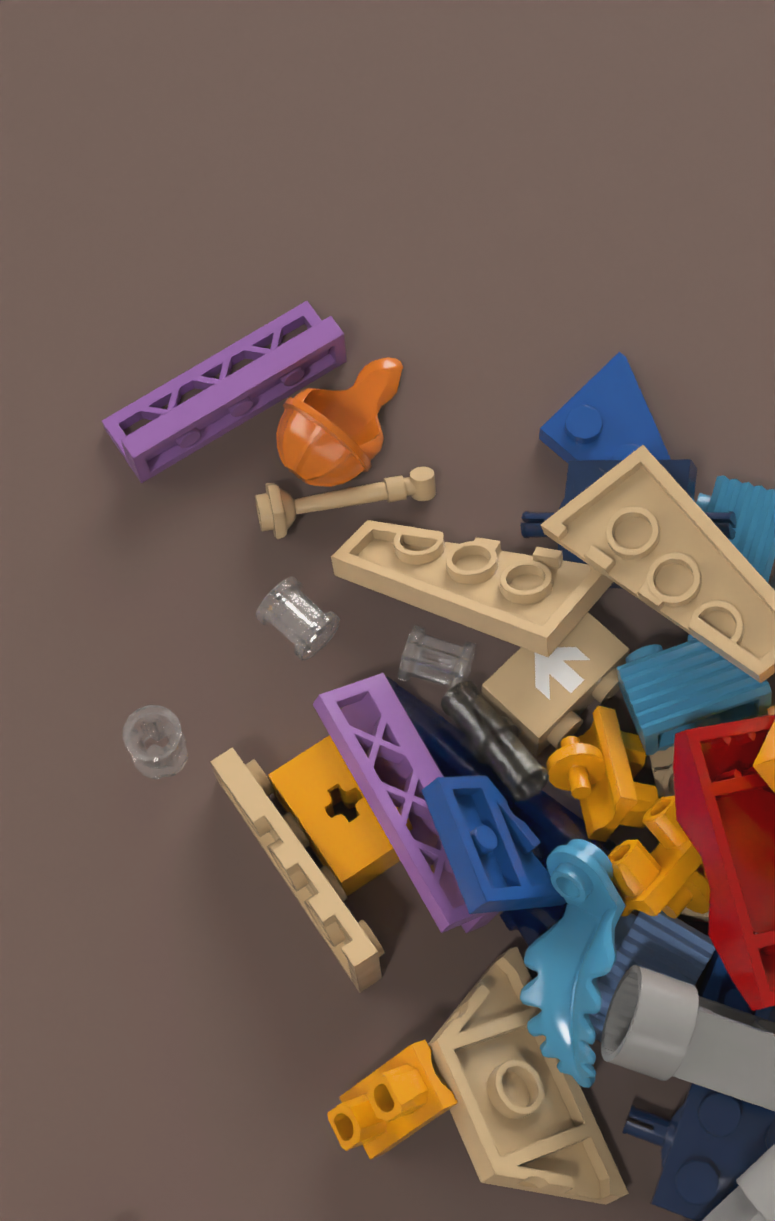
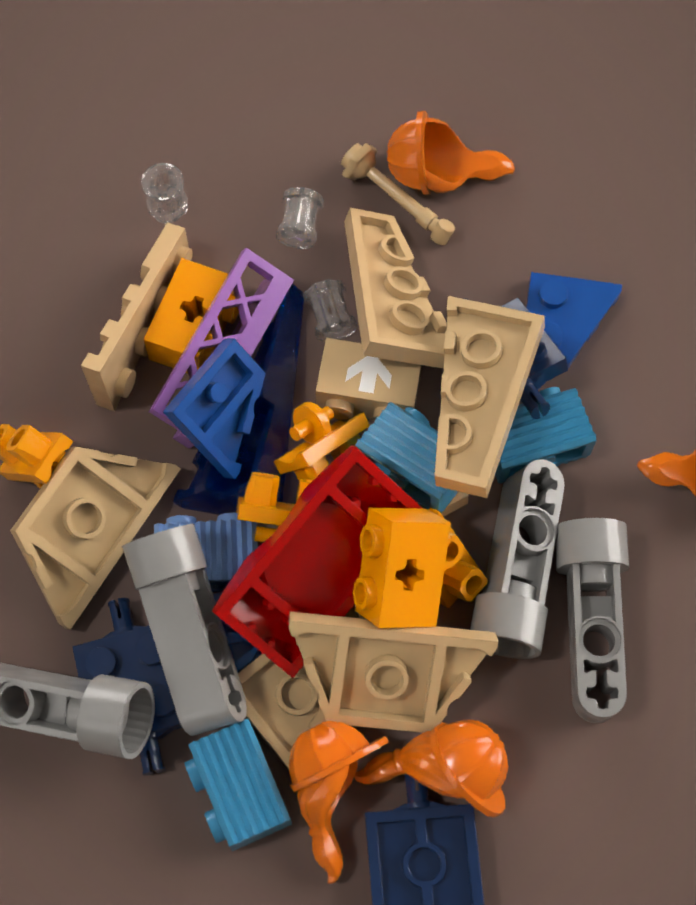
camera: 50 degrees right, 0 degrees up
(231, 398) = (416, 87): medium lavender fence -> none
(494, 740) = (296, 369): clear smoke pin -> none
(573, 957) = (188, 491): dark azure plant -> none

